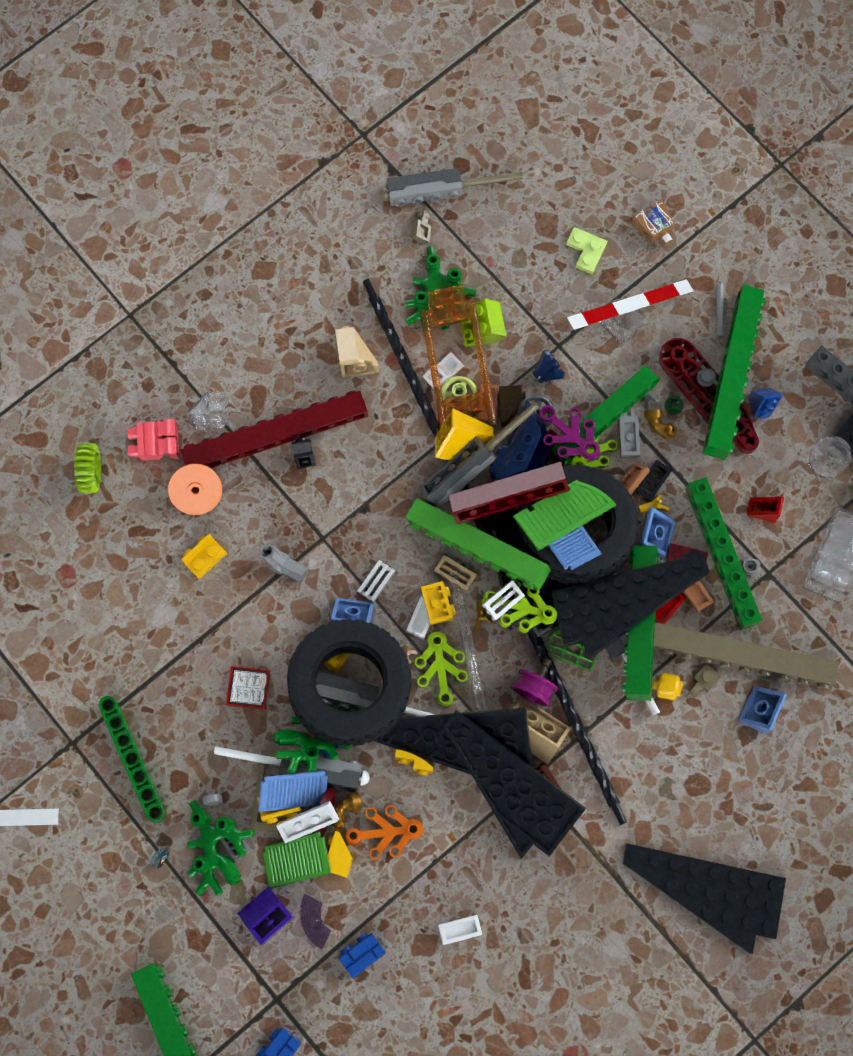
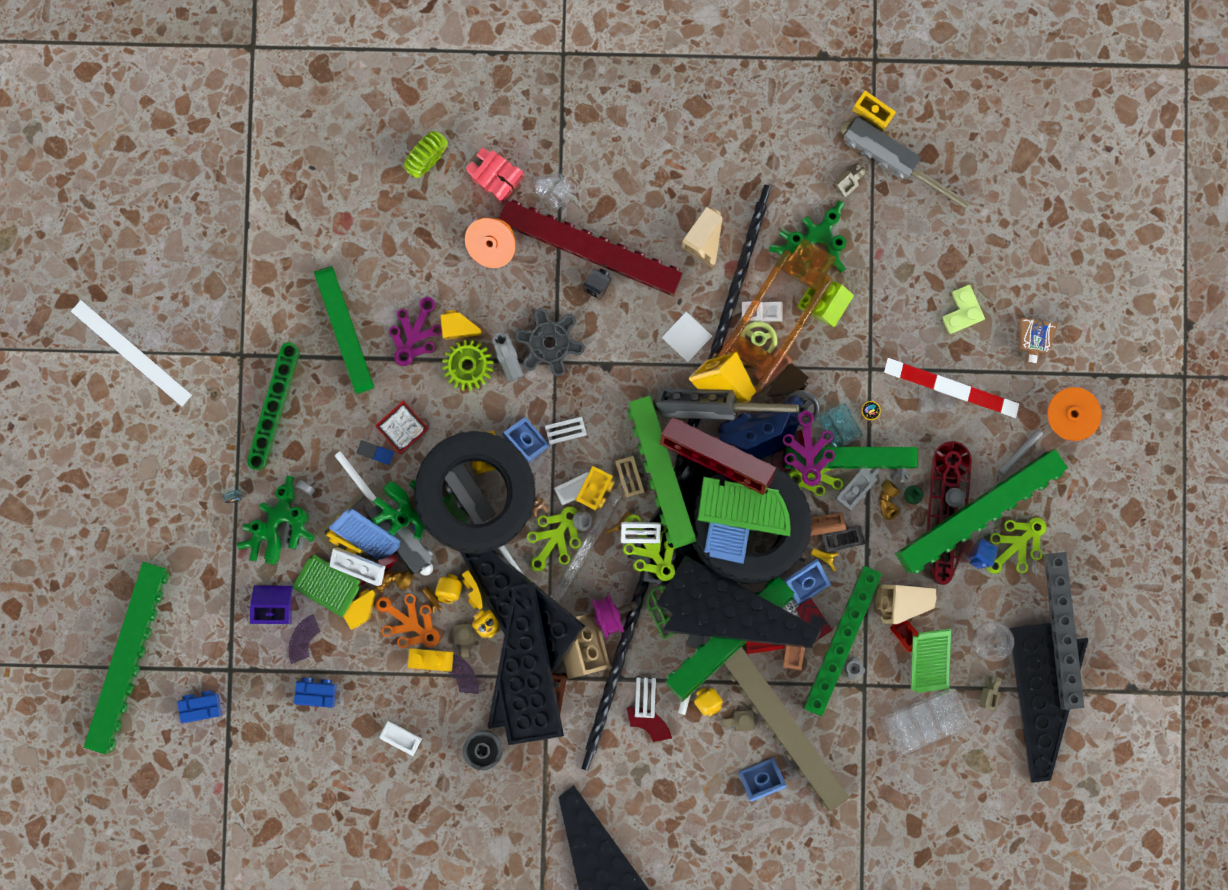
camera: 45 degrees right, 10 degrees up
(138, 652) = (344, 330): none -> green beam
(195, 611) = (414, 335): none -> magenta plant
(203, 556) = (455, 298): yellow bracket -> none
(225, 573) = (457, 326): none -> yellow slope
(243, 725) = (375, 452): none -> sticker
(255, 585) = (471, 376): none -> lime gear
(305, 513) = (544, 329): none -> dark grey plate
(390, 798) = (432, 599): none -> pearl gold bar
(394, 778) = (448, 589): none -> yellow head
(395, 164) = (874, 111): none -> yellow brick
(404, 436) = (687, 336): none -> white sticker
(429, 845) = (430, 659): none -> yellow brick
(439, 804) = (464, 636): none -> dark tan plate
(447, 779) = (485, 624): none -> yellow head
(449, 636) = (582, 520): none -> light grey tile
(461, 834) = (464, 676): none -> clear purple tile
(543, 874) = (479, 760): none -> dark grey brick
(547, 368) = (843, 381): dark blue rock -> none
(575, 397) = (841, 424): none -> clear light blue bracket
(587, 373) = (870, 410): none -> tile
(601, 718) = (646, 681): none -> white tile
(639, 742) = (654, 726): none -> dark red tile
(733, 249) = (1074, 414): none -> orange piece
(739, 485) = (903, 602): none -> tan slope
(781, 373) = (1019, 543): none -> lime plant
(800, 509) = (931, 660): none -> bright green window

